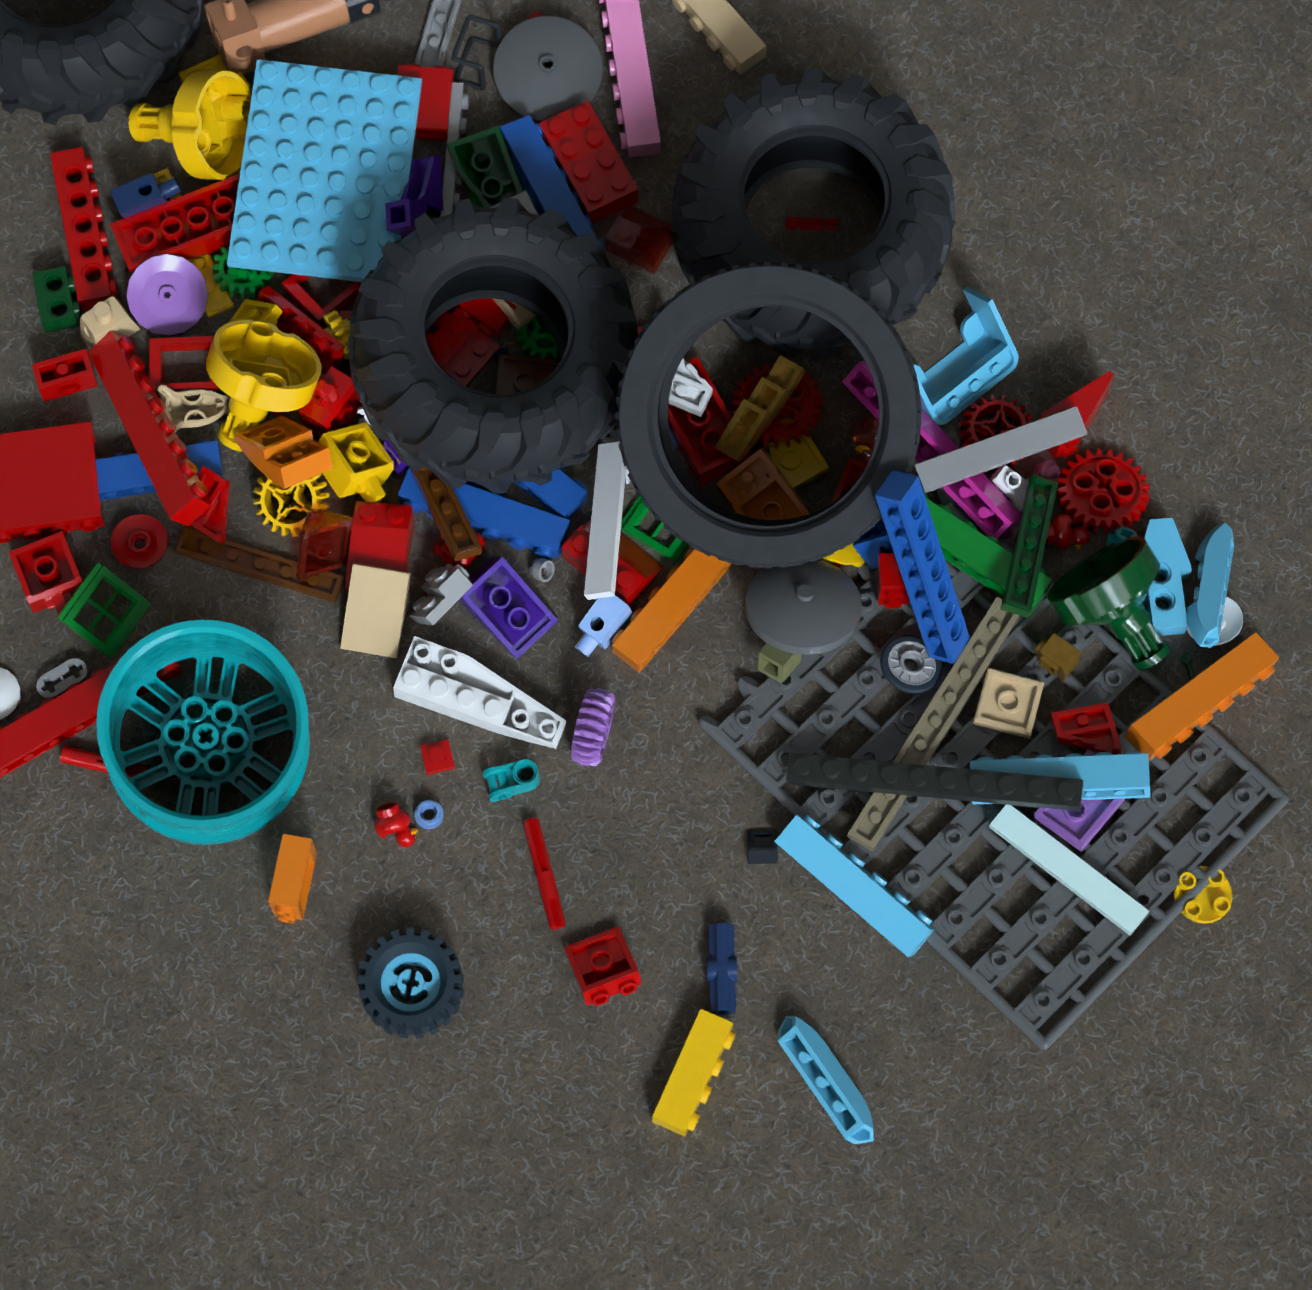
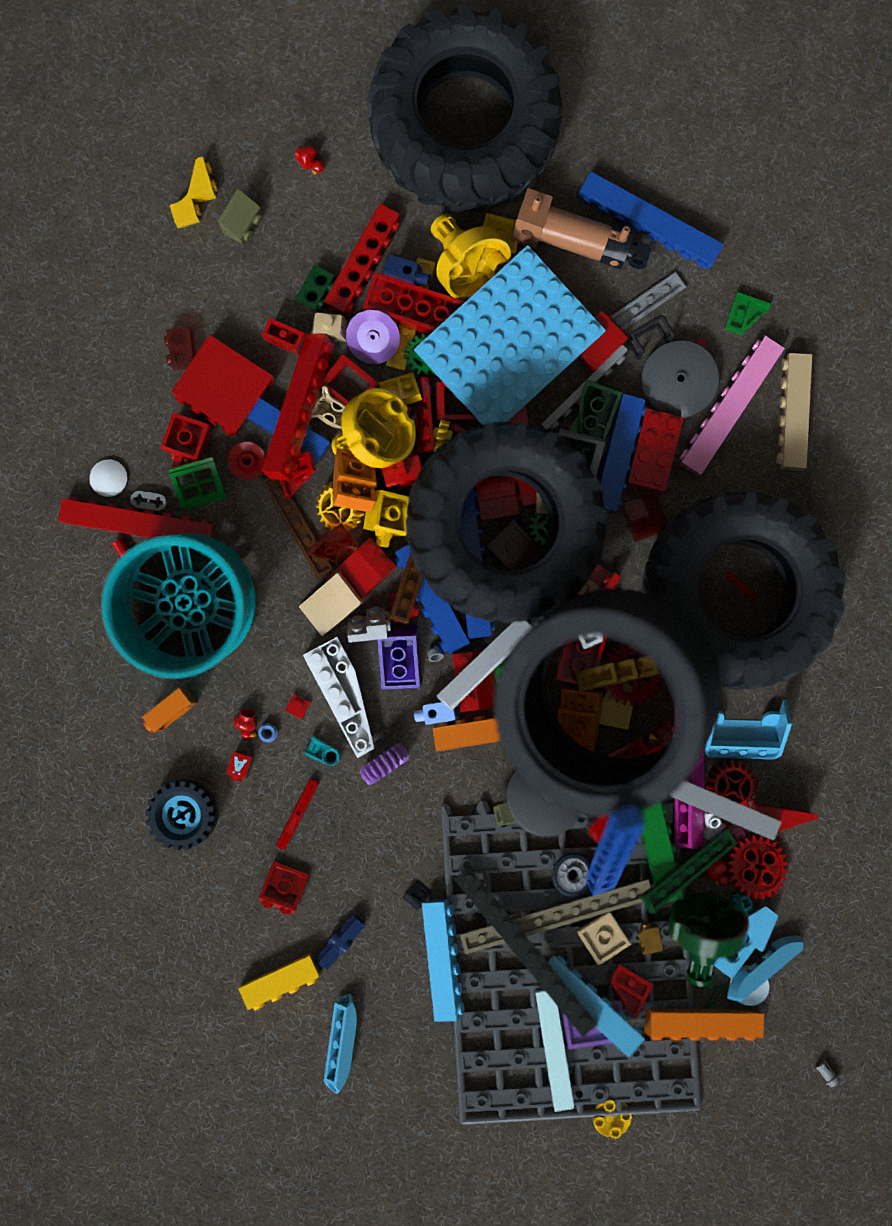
camera: 45 degrees right, 15 degrees up
(420, 196) = (547, 396): dark purple arch -> none
(429, 875) = (239, 766): none -> red brick

